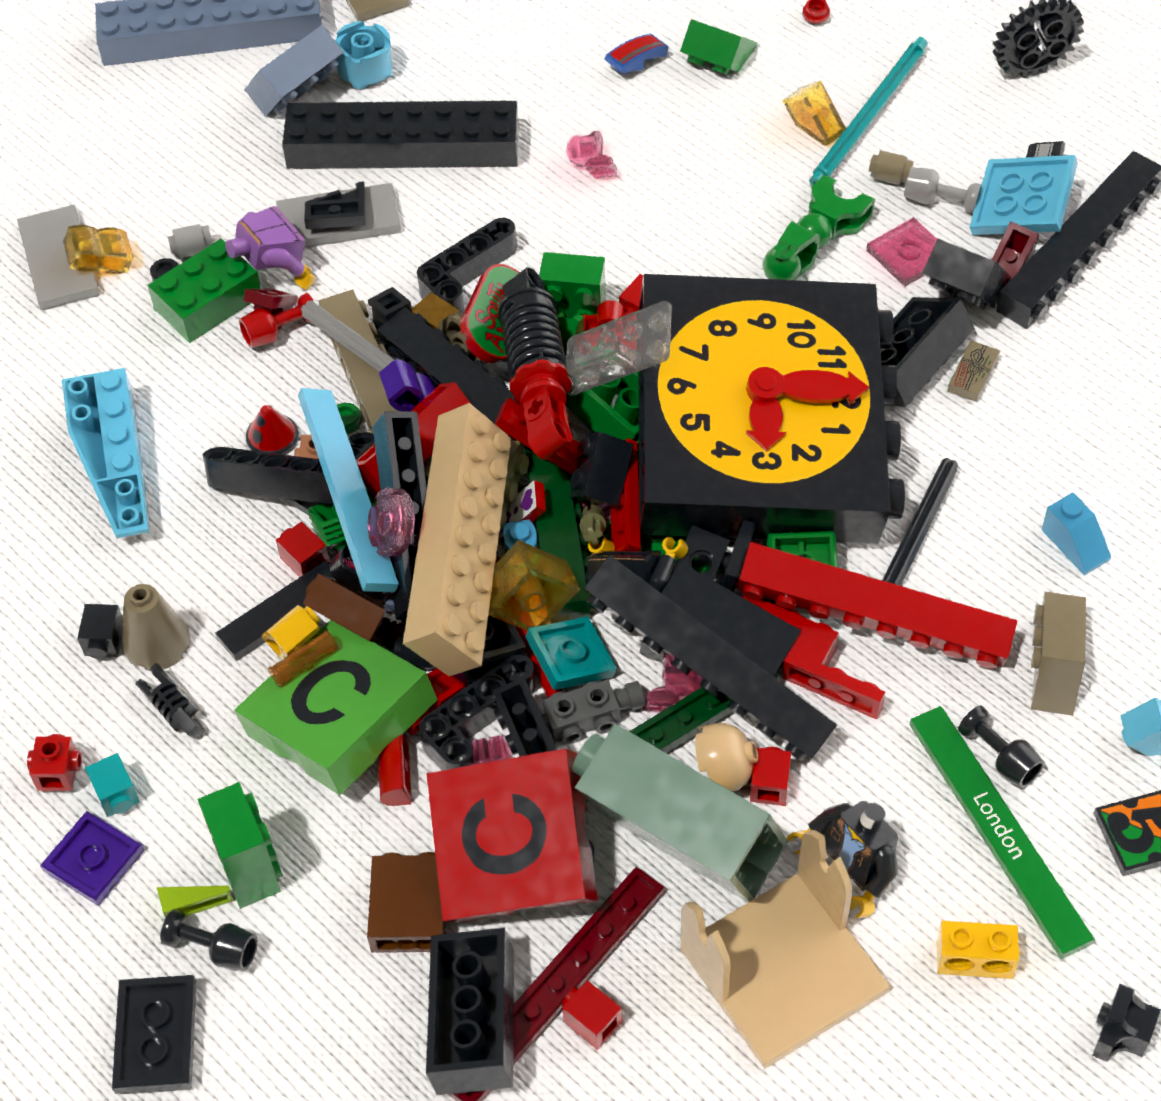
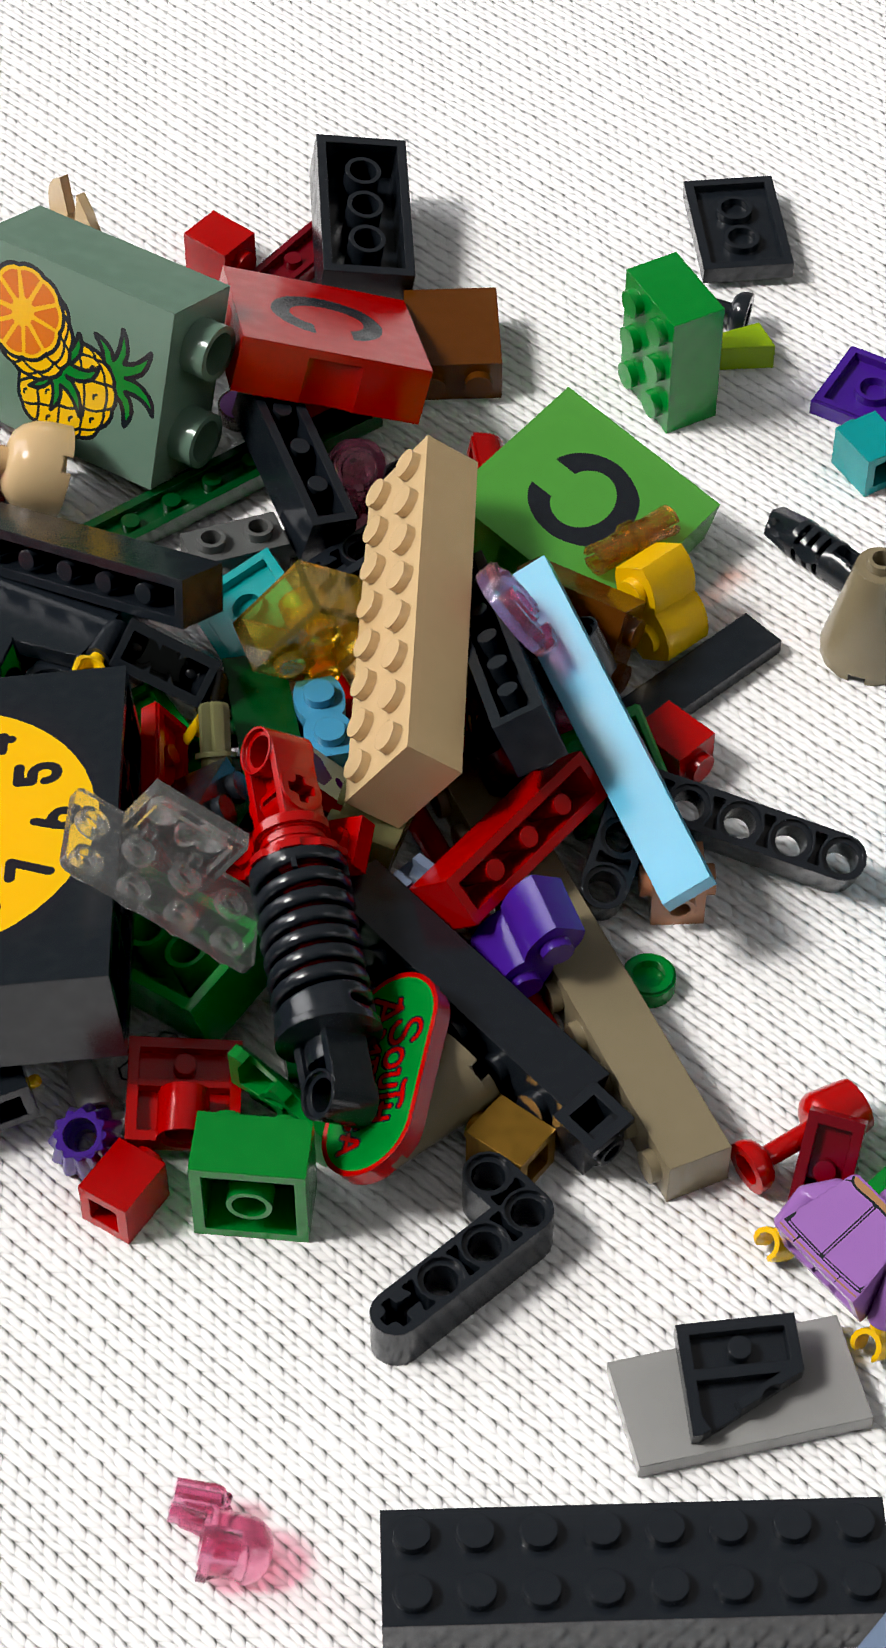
camera: 175 degrees right, 5 degrees down
(271, 432) = (769, 950): red hat -> none
(345, 336) = (659, 1053): light grey axle -> none

